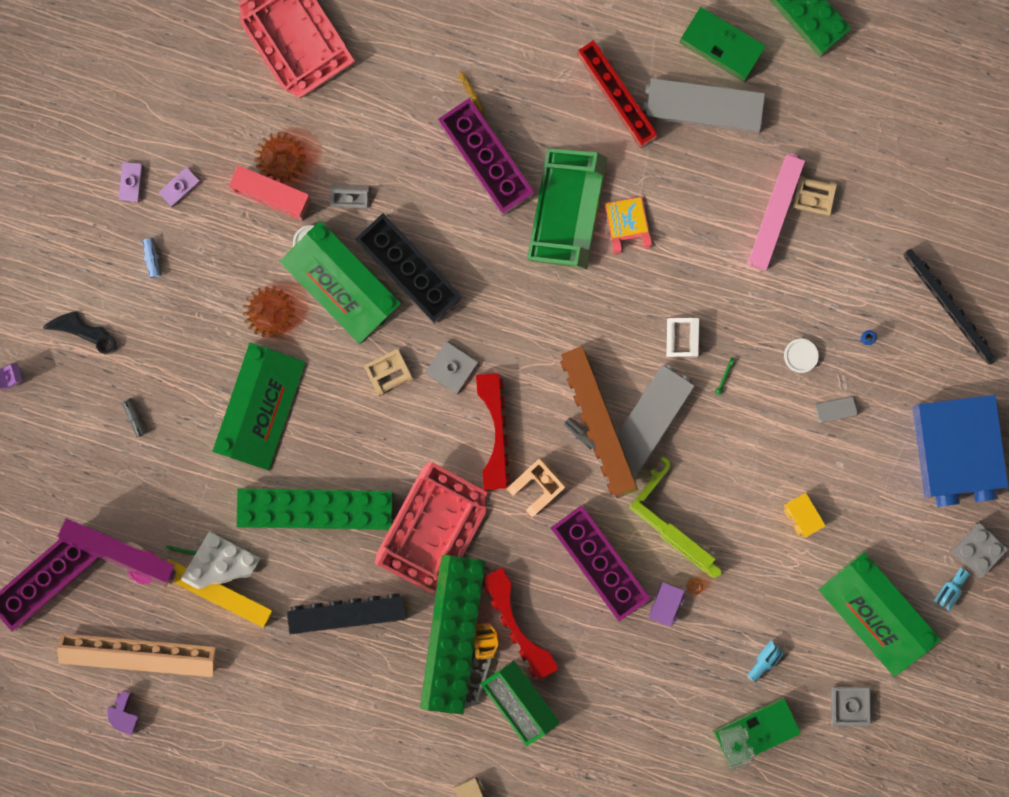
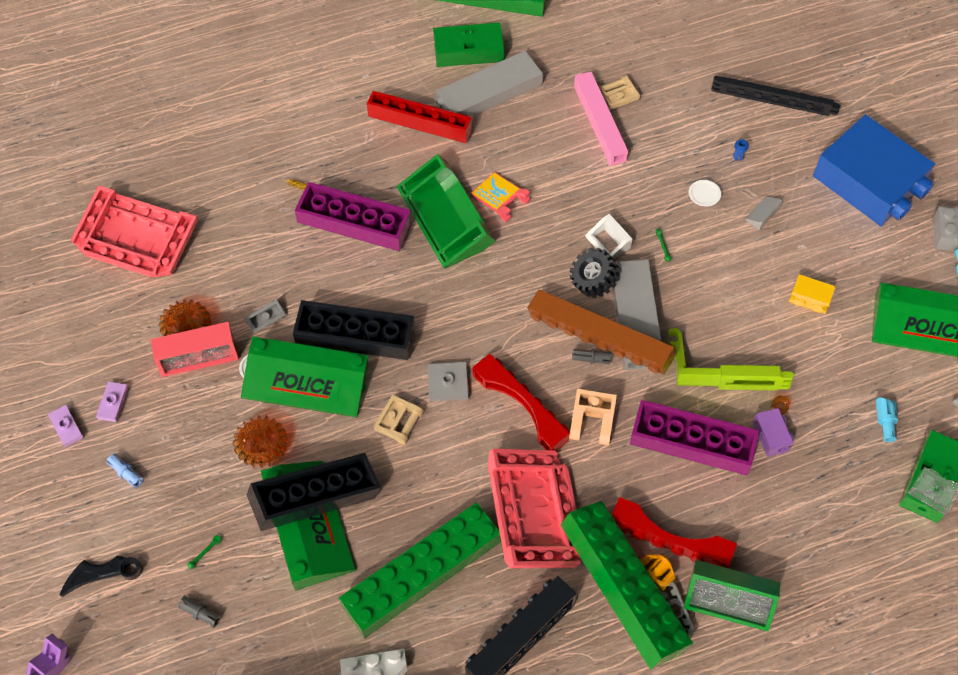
camera: 35 degrees left, 25 degrees down
(183, 368) = (216, 540): none -> green hinge
(275, 392) = (312, 491): none -> black brick
(631, 361) = (592, 263): none -> black wheel

